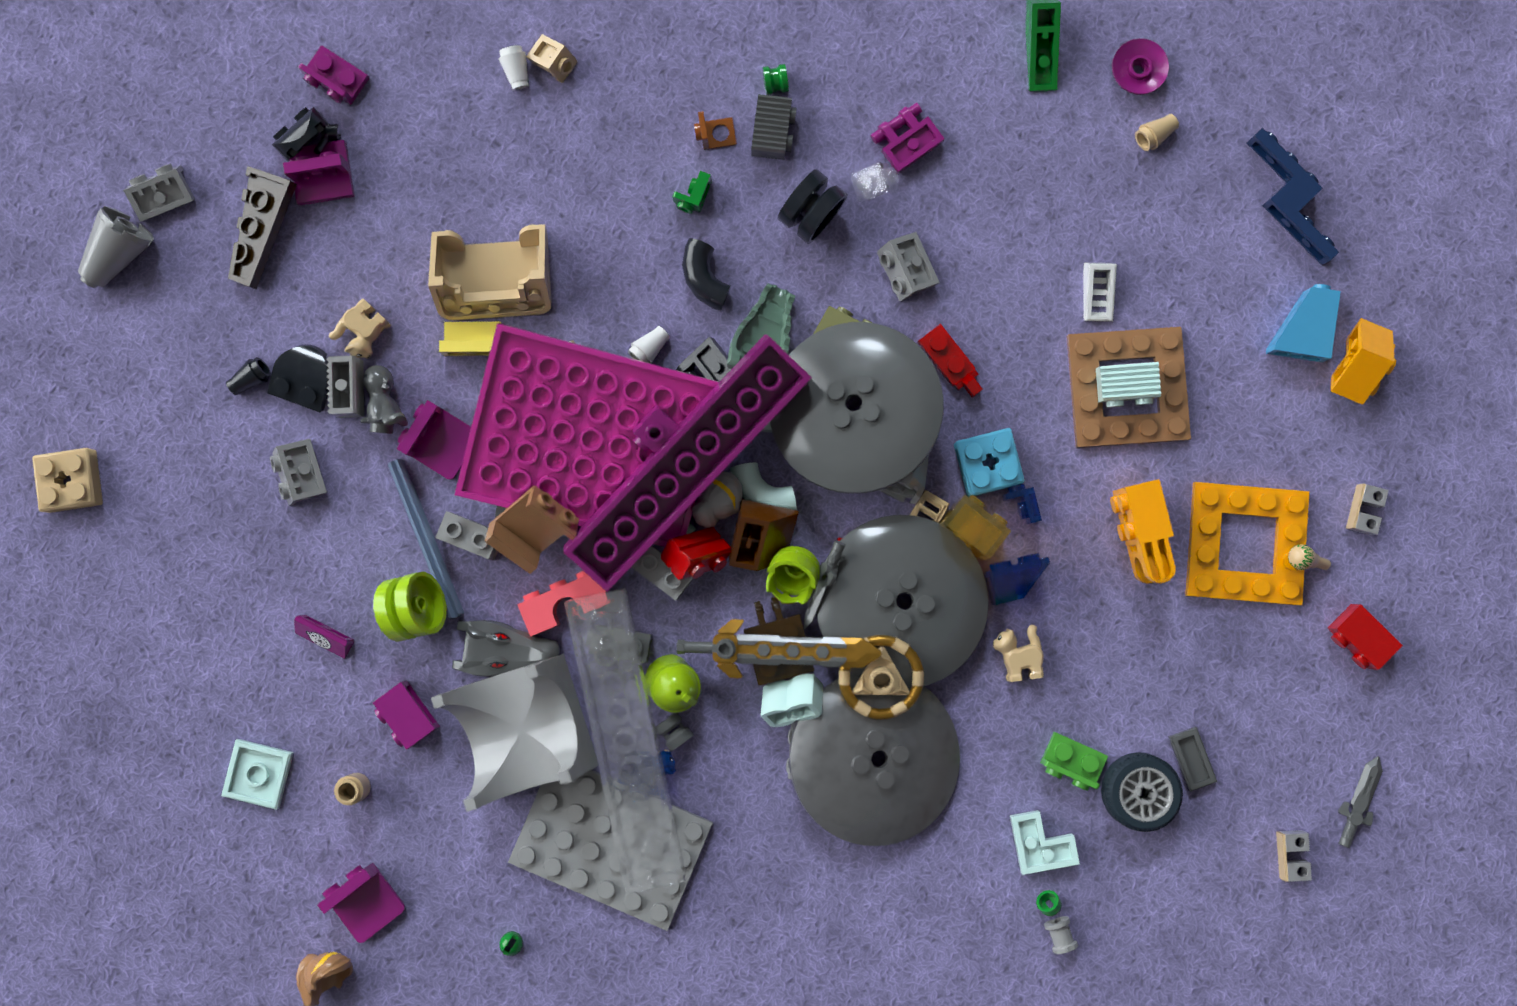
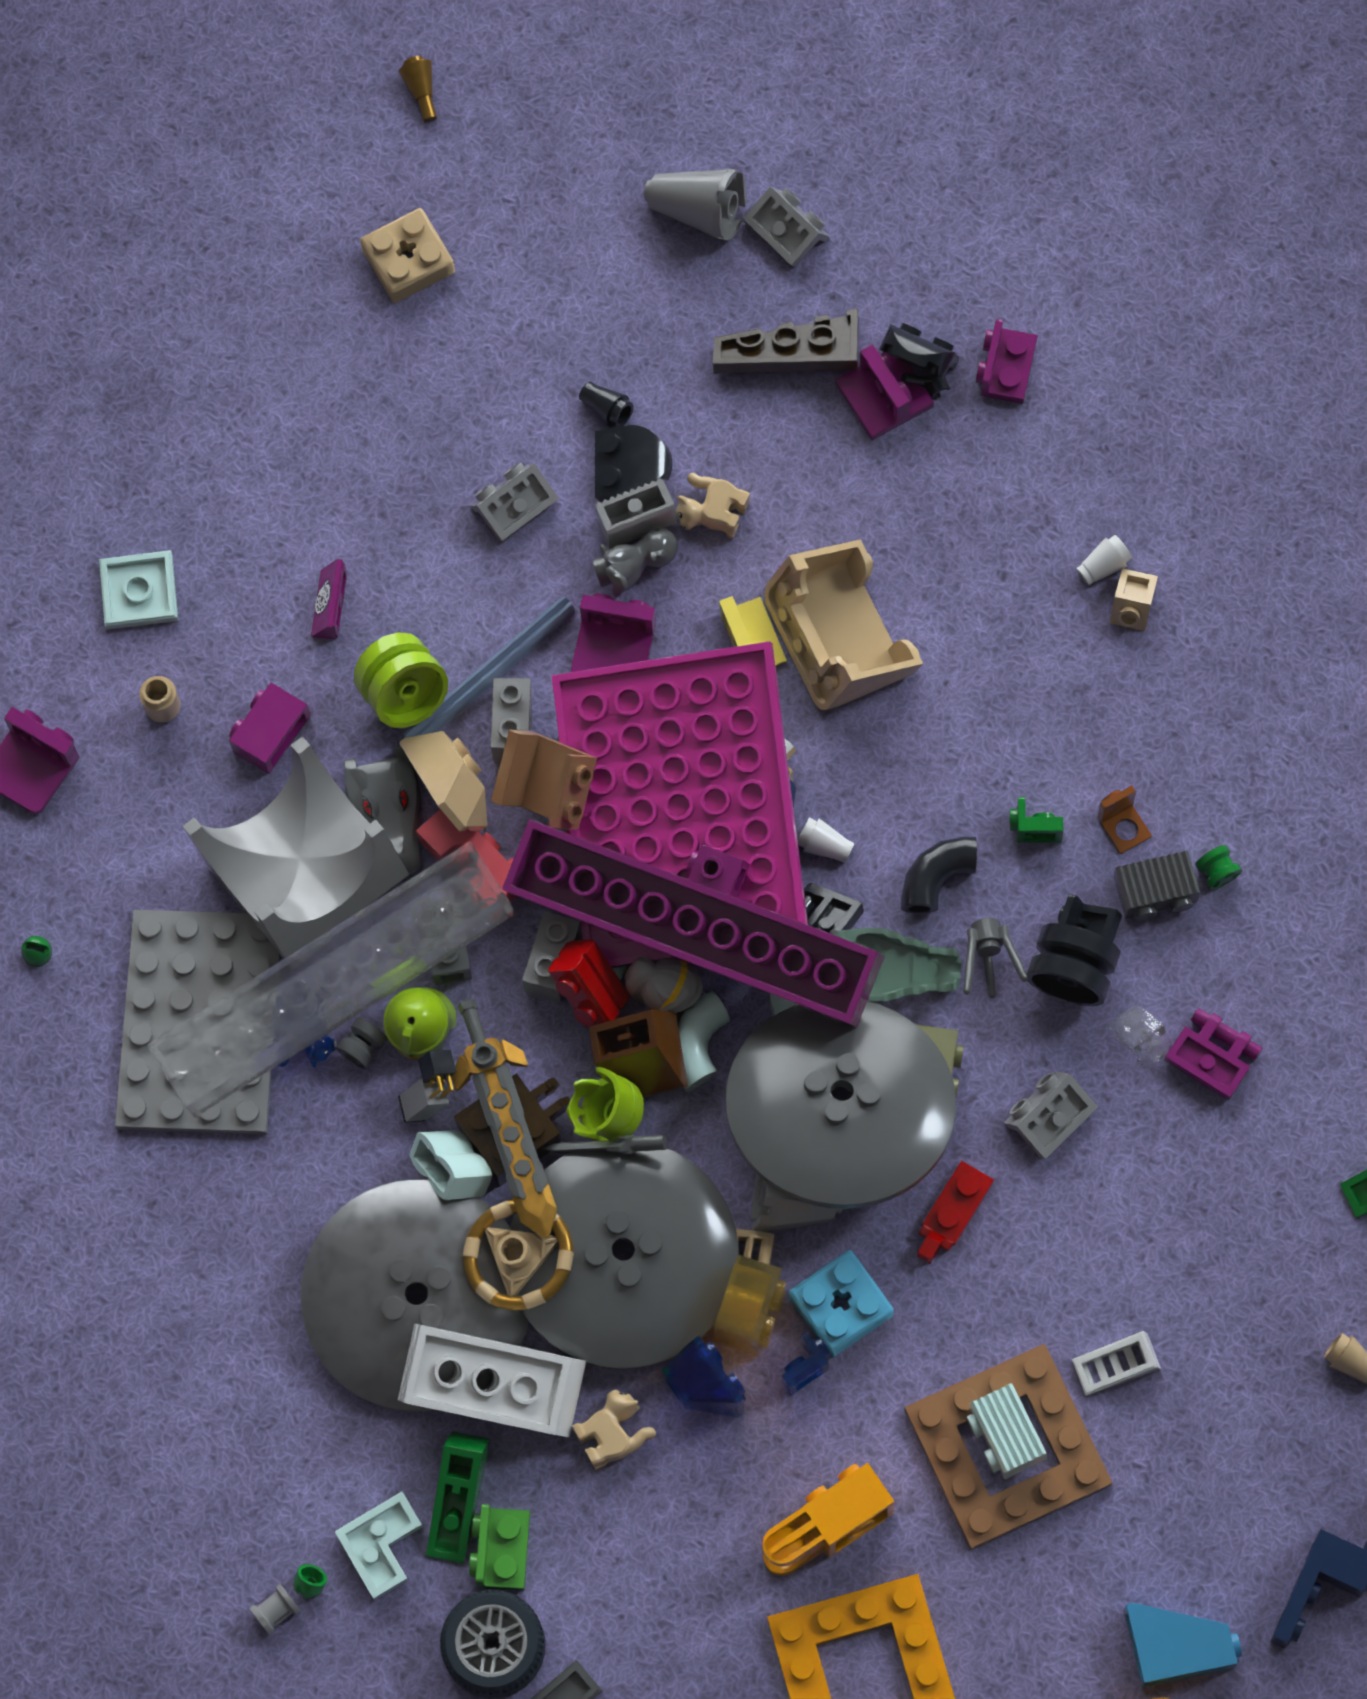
camera: 70 degrees right, 15 degrees down
(503, 599) = (449, 777): none -> tan wedge
(733, 695) = (429, 1093): none -> piece
(767, 261) = (987, 938): none -> dark grey plant
(781, 184) = (1094, 918): none -> black bracket
(961, 729) = (527, 1386): none -> white hinge
(1027, 778) = (457, 1496): none -> green slope

